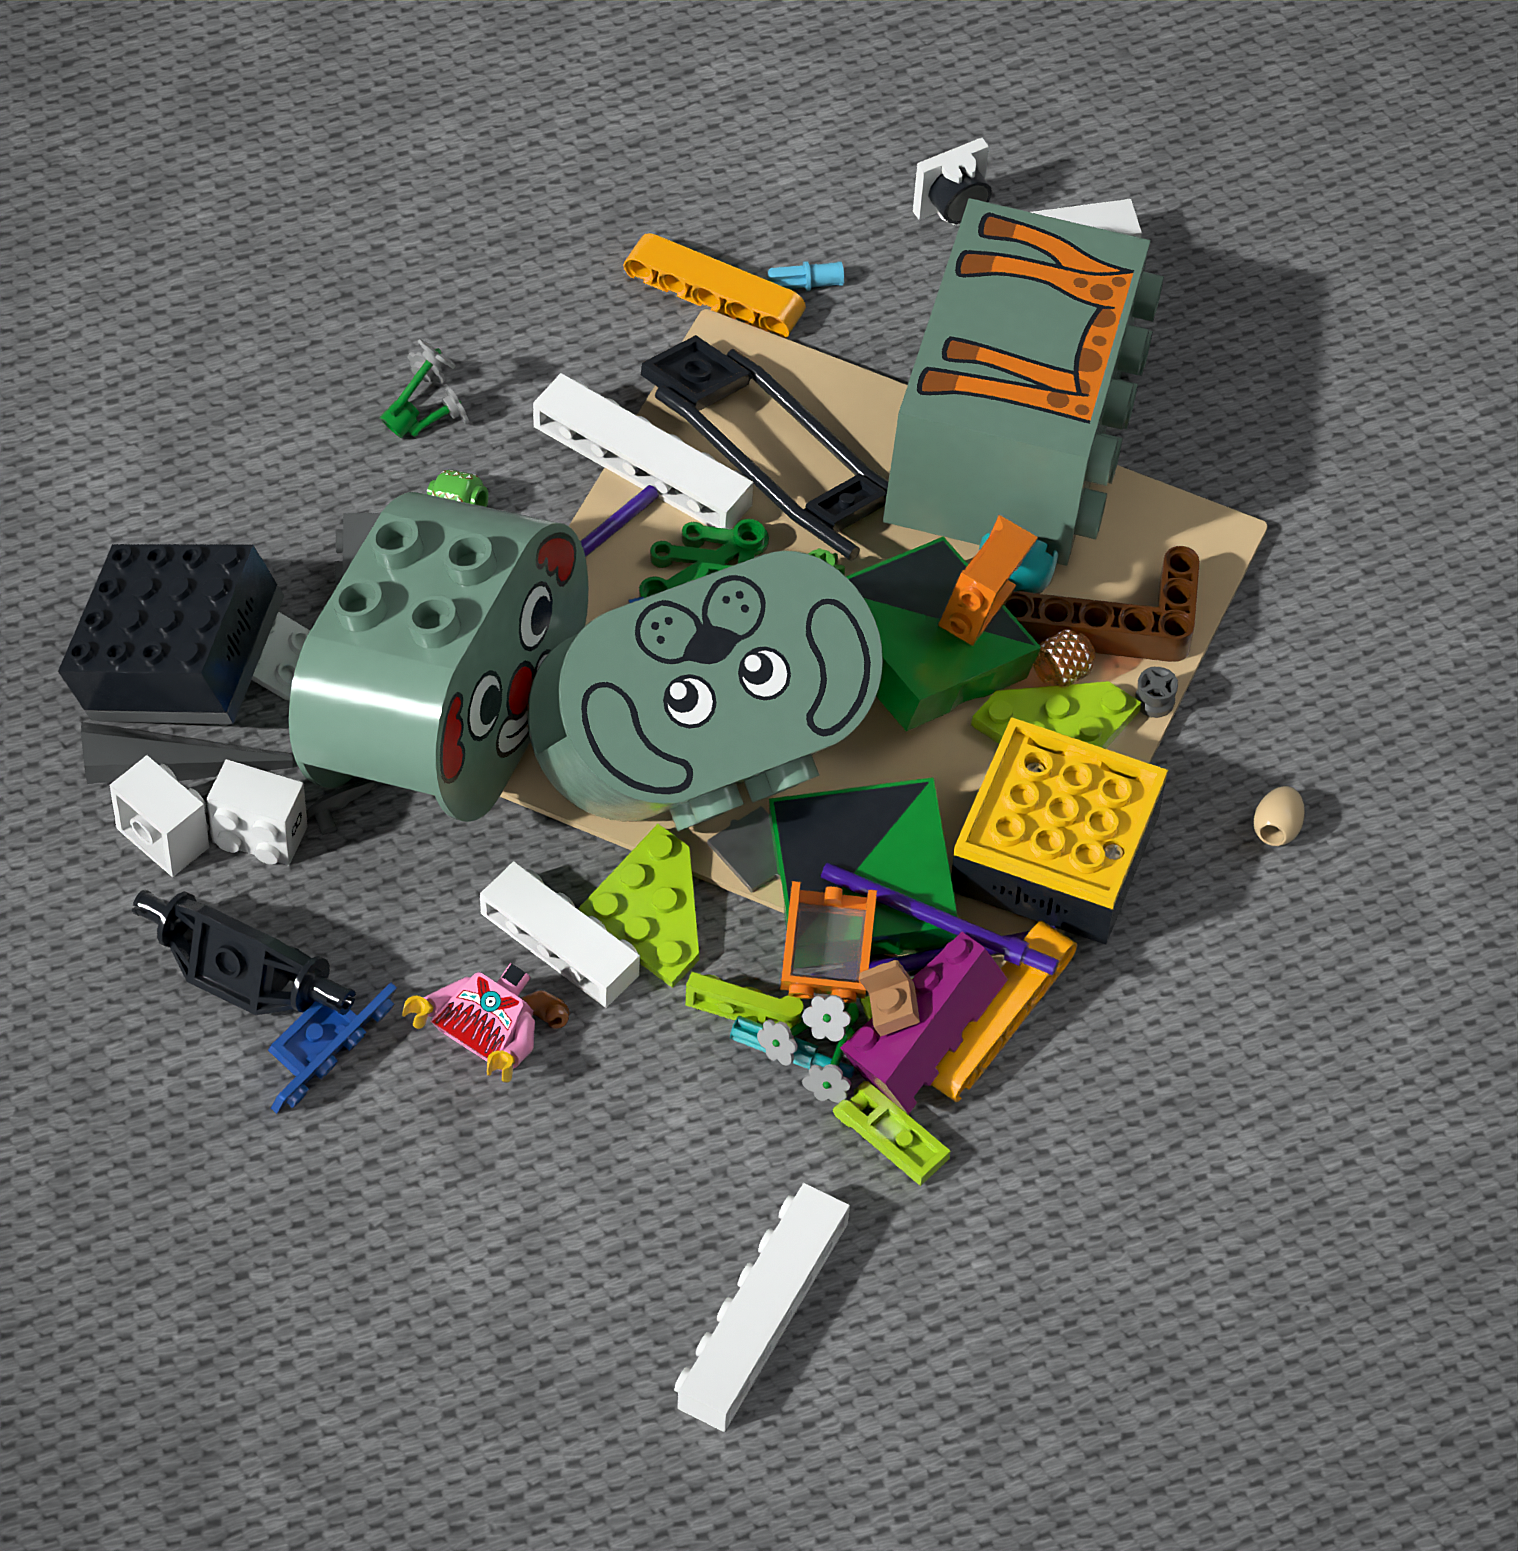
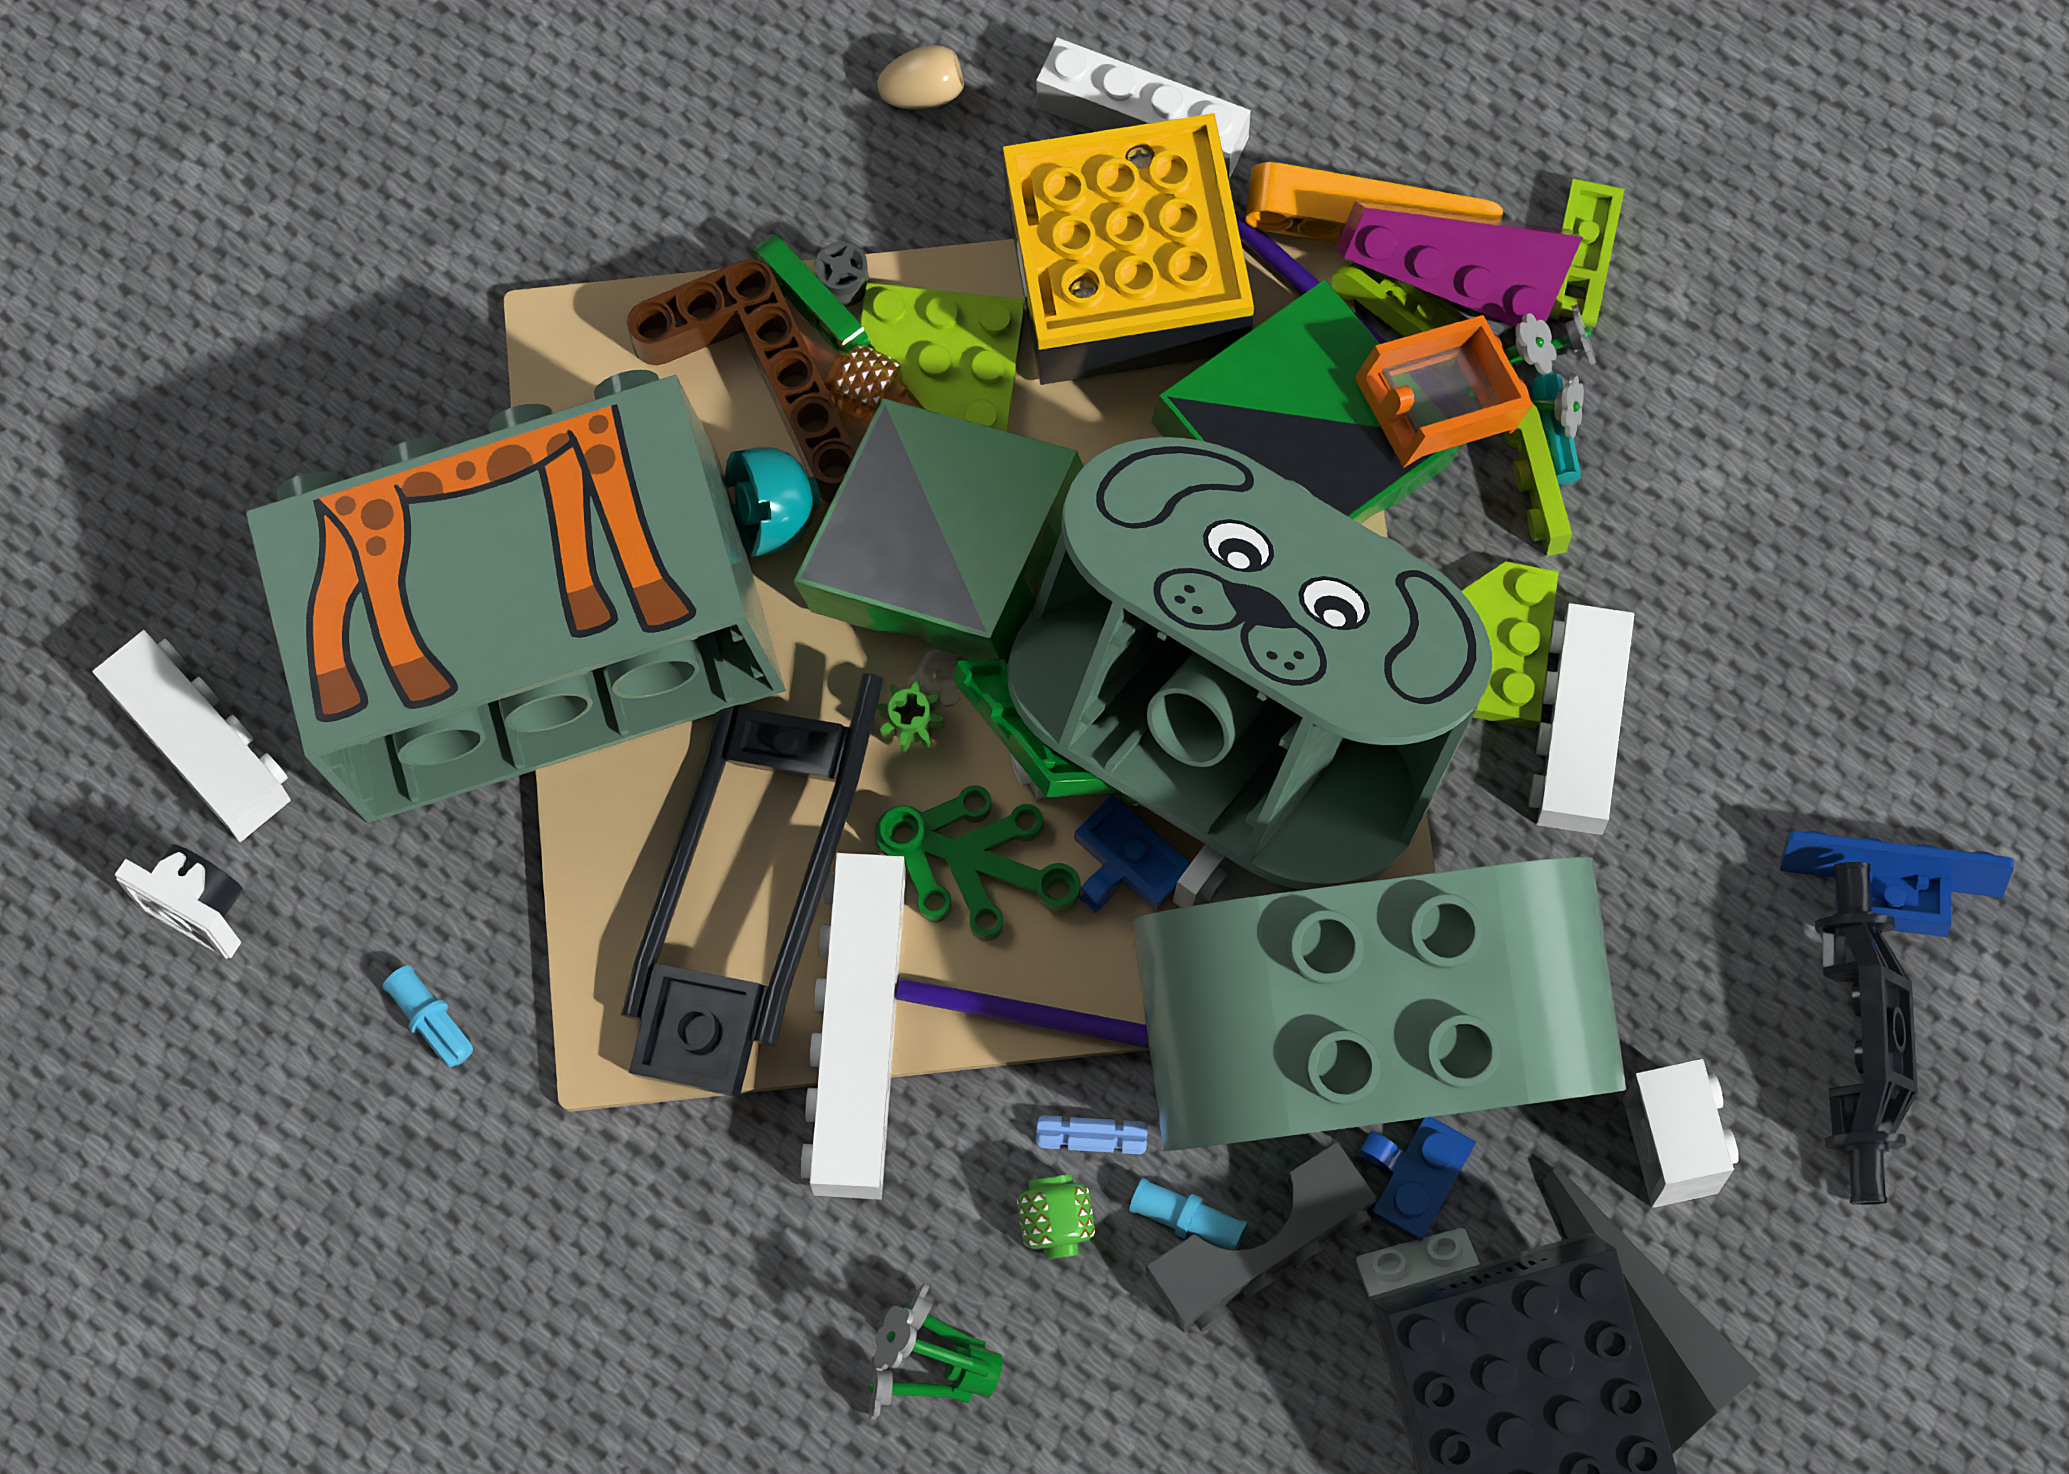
camera: 115 degrees left, 15 degrees up
(160, 815) = (1759, 1241): white brick -> none
(482, 1017) = (1757, 720): torso -> none
(548, 1008) = (1681, 690): dark orange arm -> none
(714, 284) = (514, 1116): light orange beam -> none
(762, 1307) = (1878, 257): white brick -> none
(891, 997) = (1482, 277): medium nougat bracket -> none
(985, 582) = (865, 458): orange window -> none
(1014, 950) = (1324, 204): dark purple bar -> none
(1124, 667) = (810, 296): none -> green beam
(1172, 925) = (1117, 95): none -> white brick

